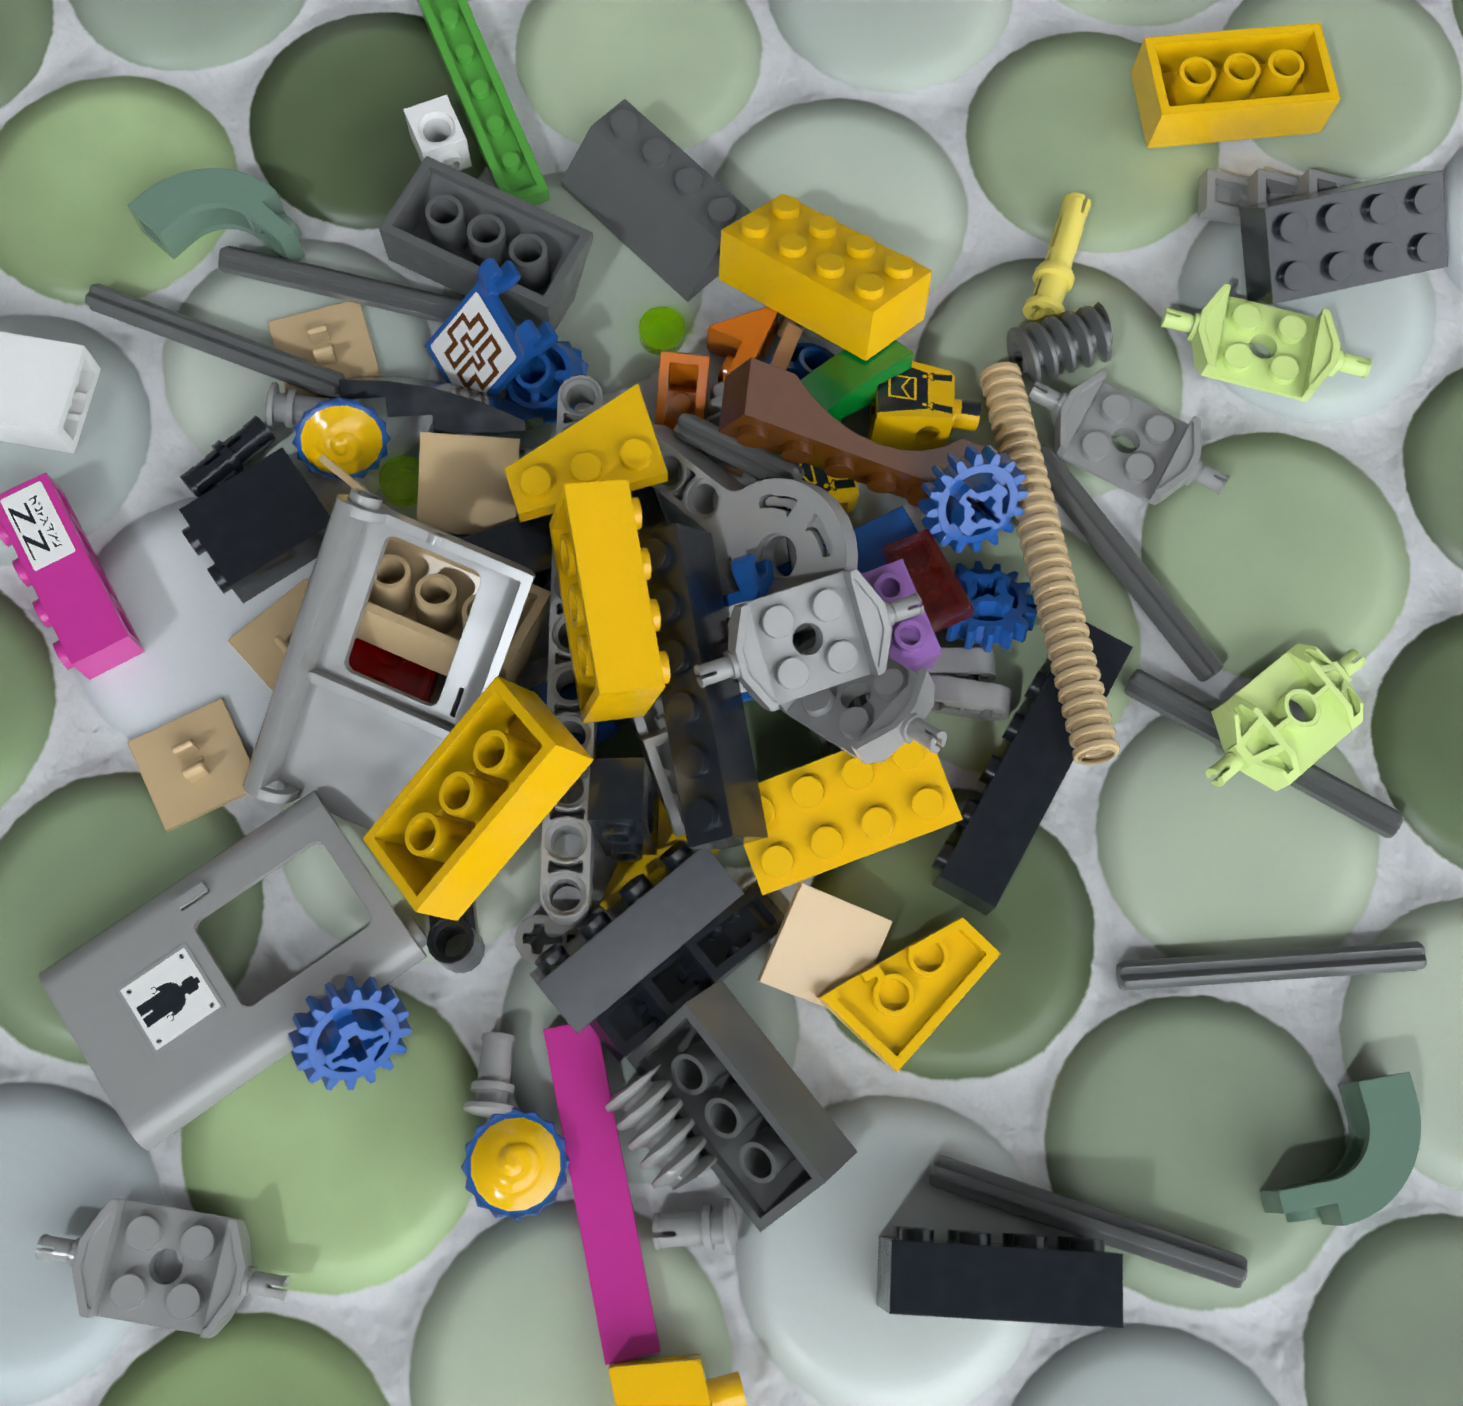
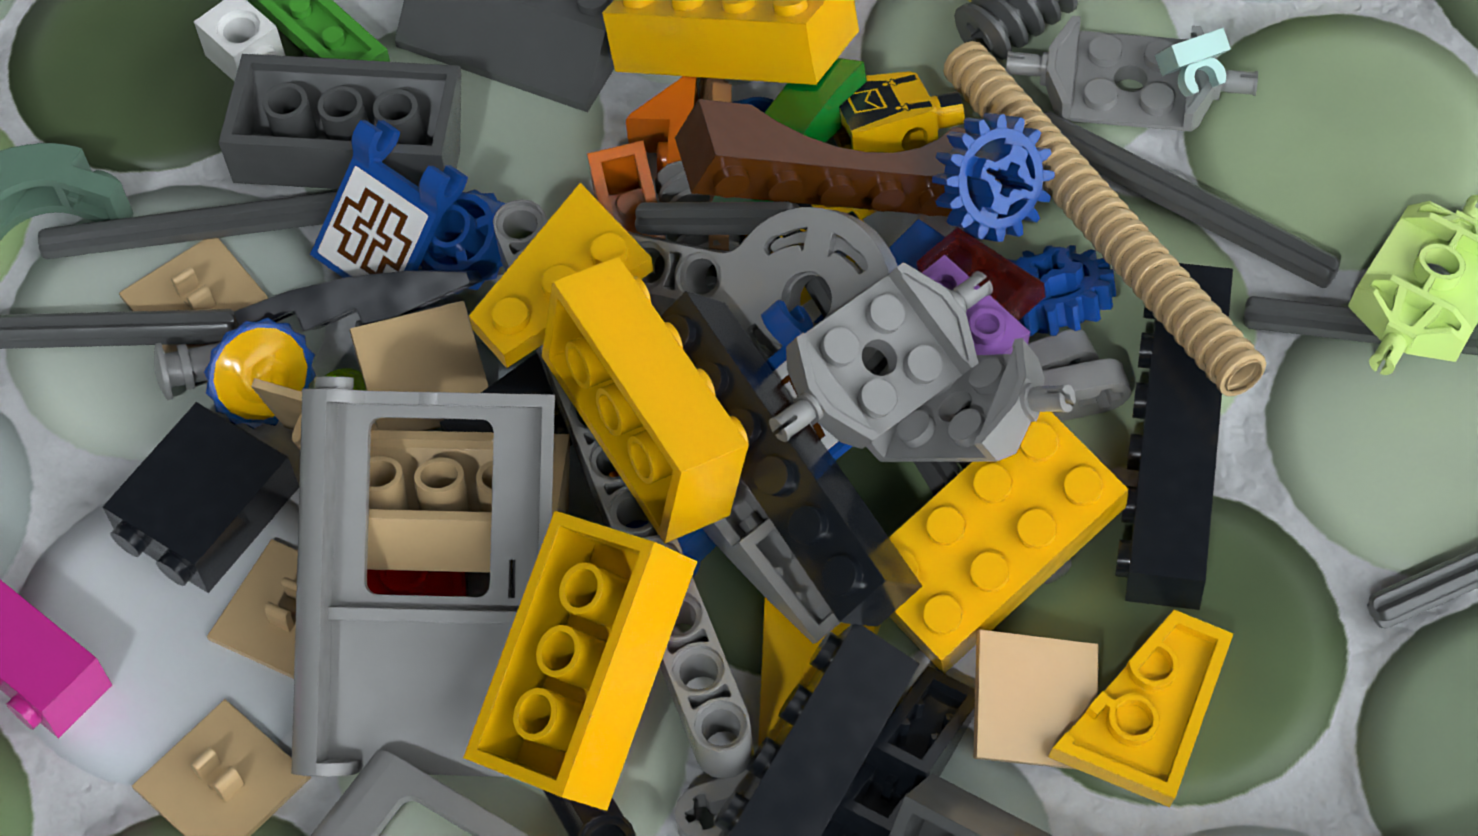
camera: 10 degrees left, 15 degrees down
(228, 457) = (132, 441): black pin -> none
(623, 808) = (747, 622): black brick -> none
(661, 330) = (568, 147): clear neon green tile -> none
(1181, 447) = (1195, 55): none -> light aqua tile

